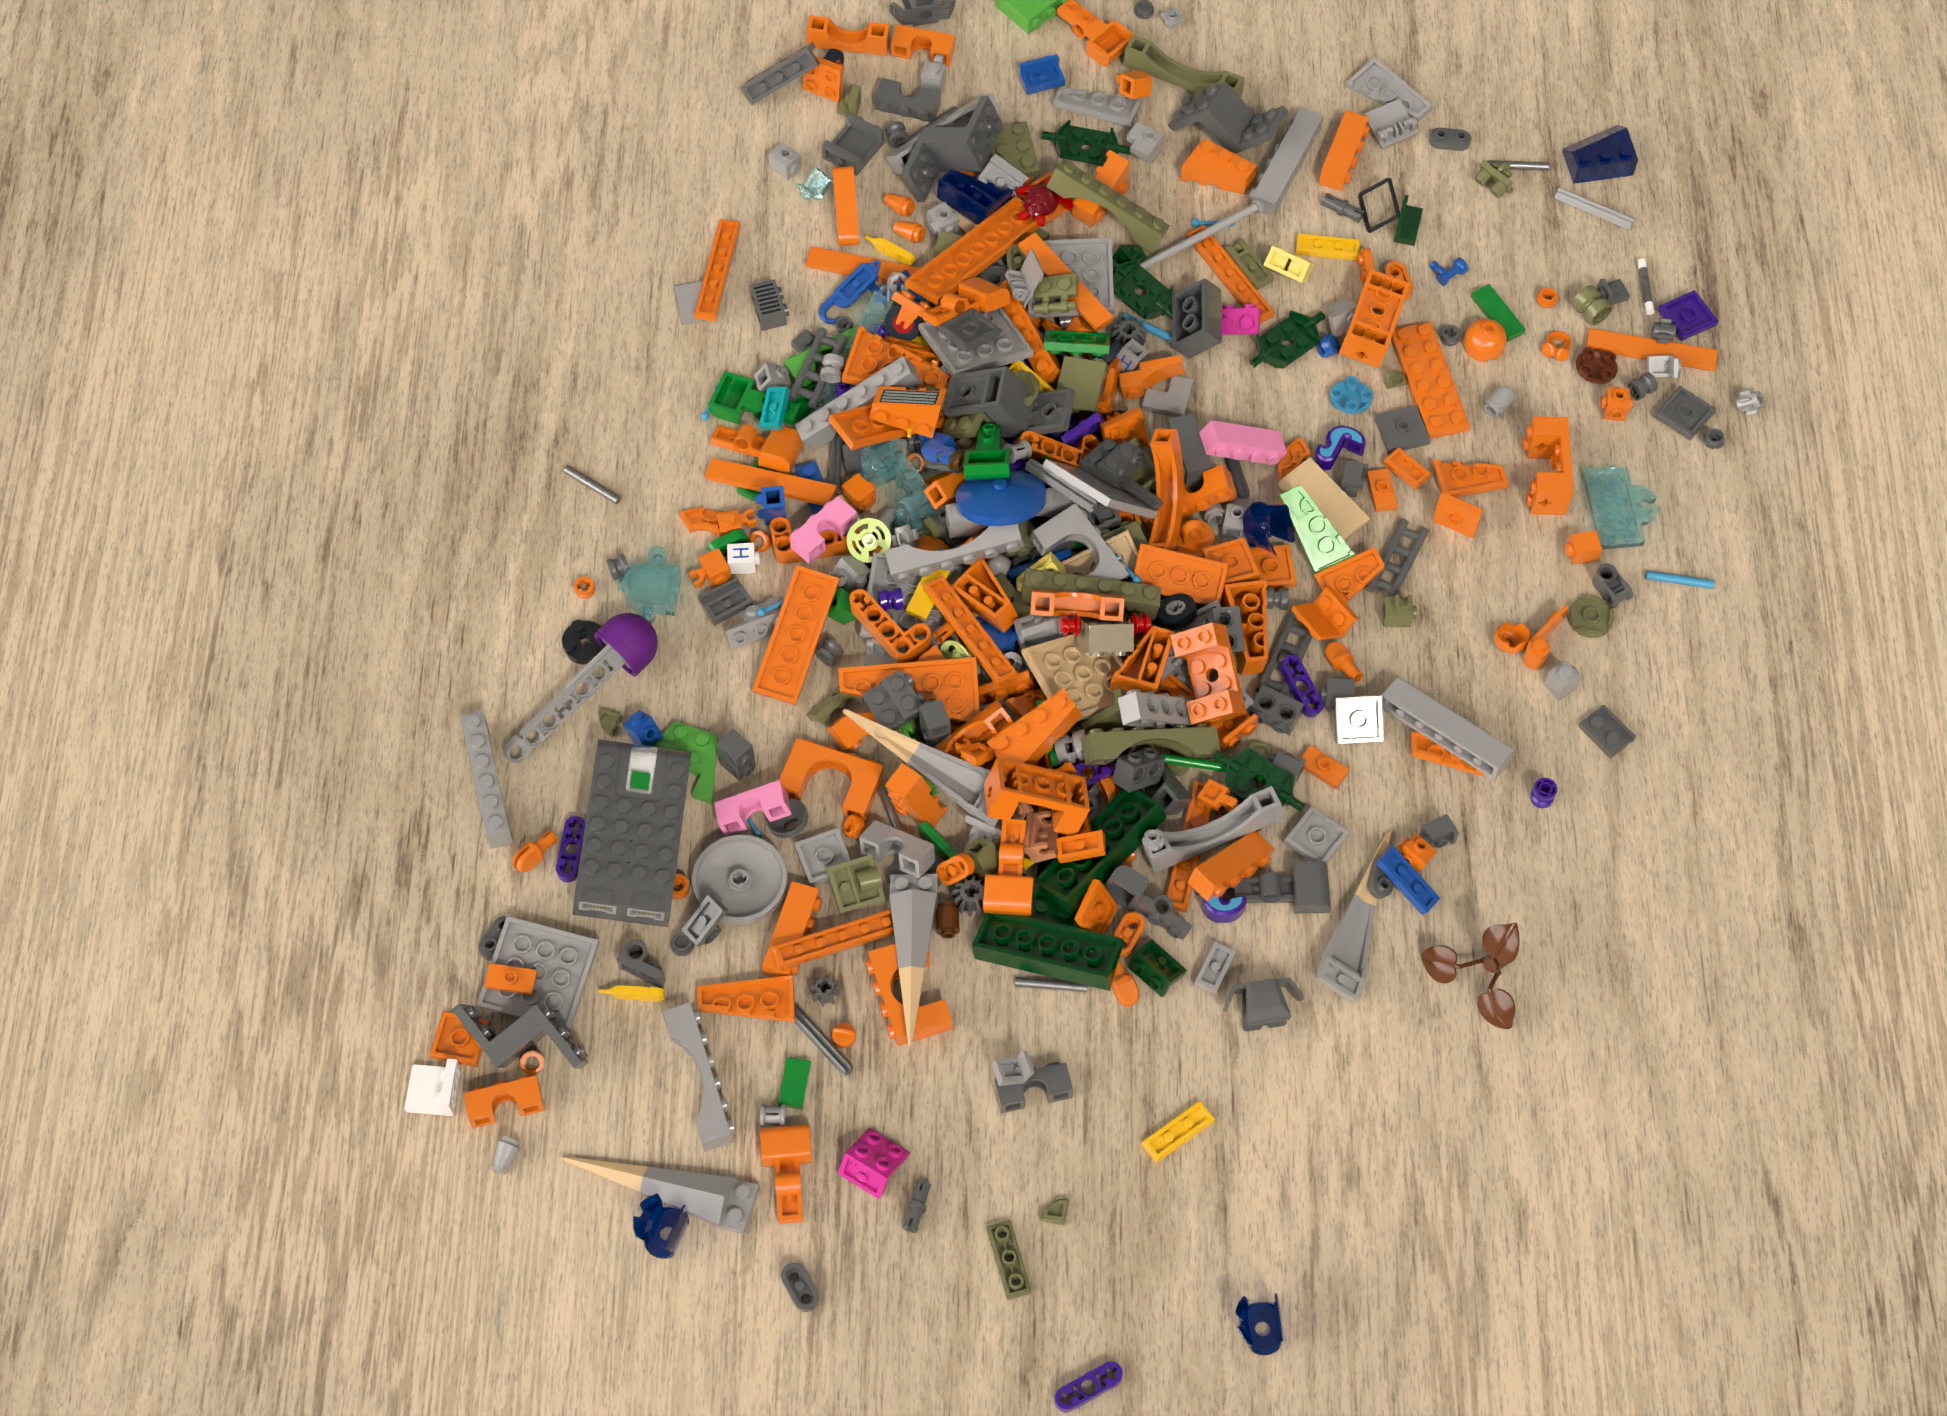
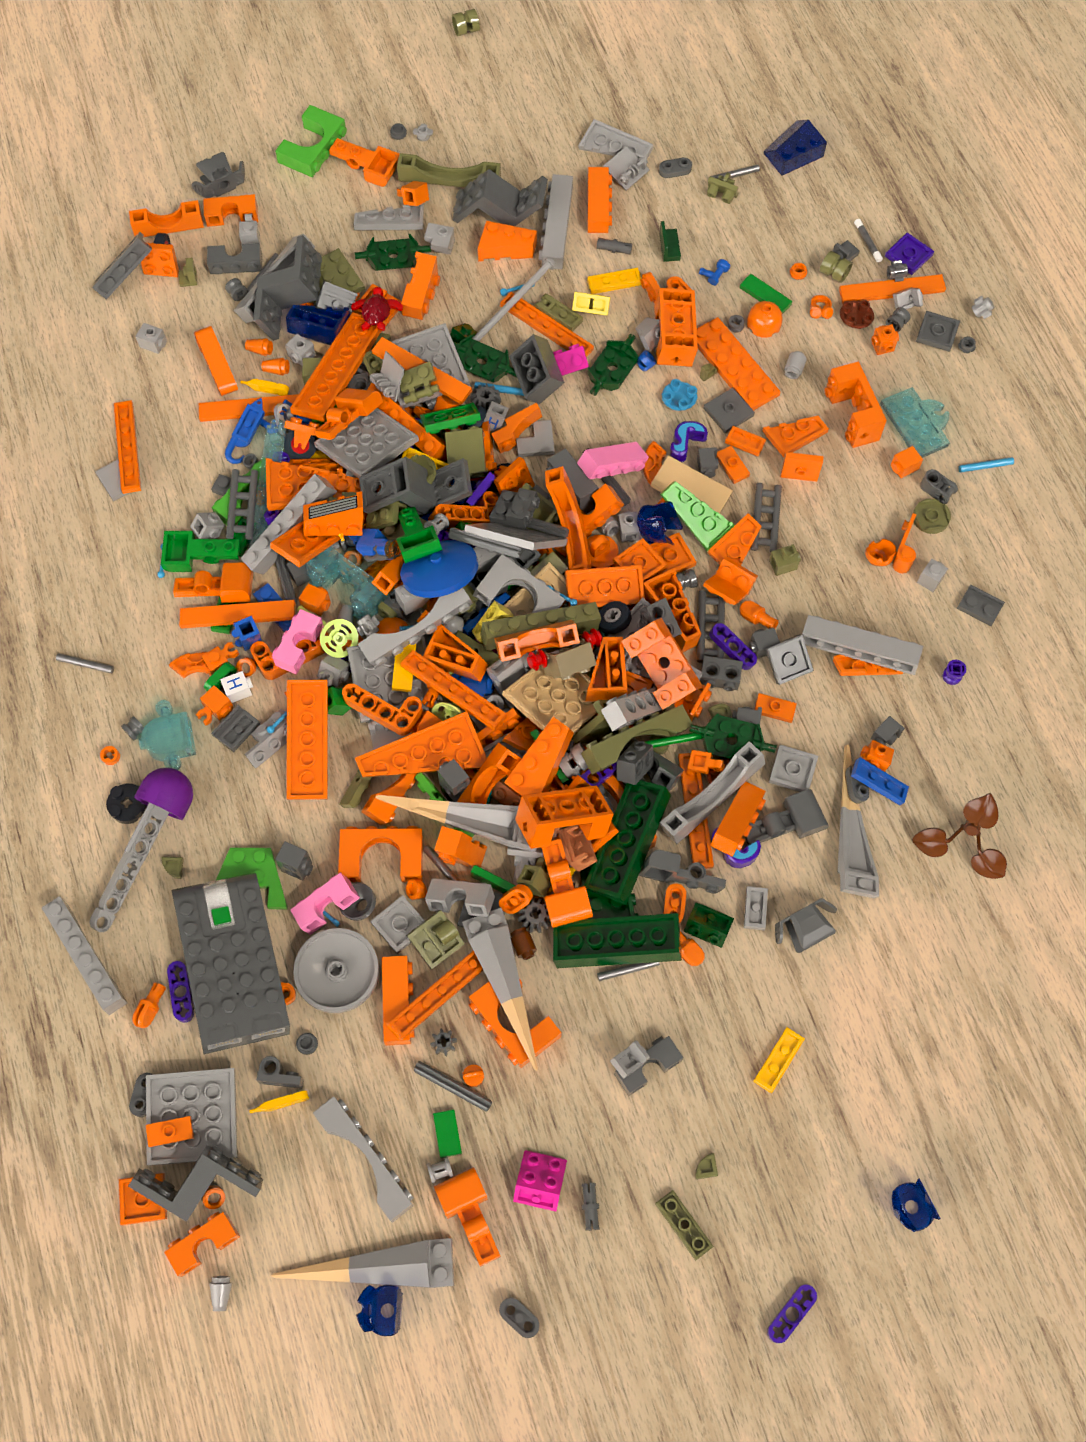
camera: 20 degrees left, 5 degrees up
(433, 1089) = (134, 1255): white bracket -> none
(642, 729) = (202, 863): blue brick -> none
(703, 924) = (320, 1018): plate -> none
(755, 998) = (388, 1071): orange wing -> none
(768, 304) = (181, 463): dark grey brick -> none
(774, 408) = (218, 550): teal plate -> none
(815, 185) = (184, 351): clear light blue bracket -> none
(829, 652) = (339, 744): dark grey wheel -> none
(832, 368) = (255, 501): light grey wheel -> none
(854, 144) = (203, 307): dark grey panel -> none
(884, 599) = (376, 683): dark purple wheel -> none
(894, 701) = (412, 771): dark grey plate -> none
(969, 330) = (359, 434): dark grey plate -> none
(975, 753) = (496, 795): orange plate -> none
(1041, 74) = (336, 207): blue bracket -> none
(1075, 183) = (398, 287): olive arch -> none
(1081, 846) = (614, 845): orange plate -> none
(1096, 909) = (643, 893): orange plate -> none
(1153, 845) = (671, 824): light grey plate -> none
(1360, 196) = (653, 226): black piece -> none
(1594, 208) = (805, 190): light grey axle -> none

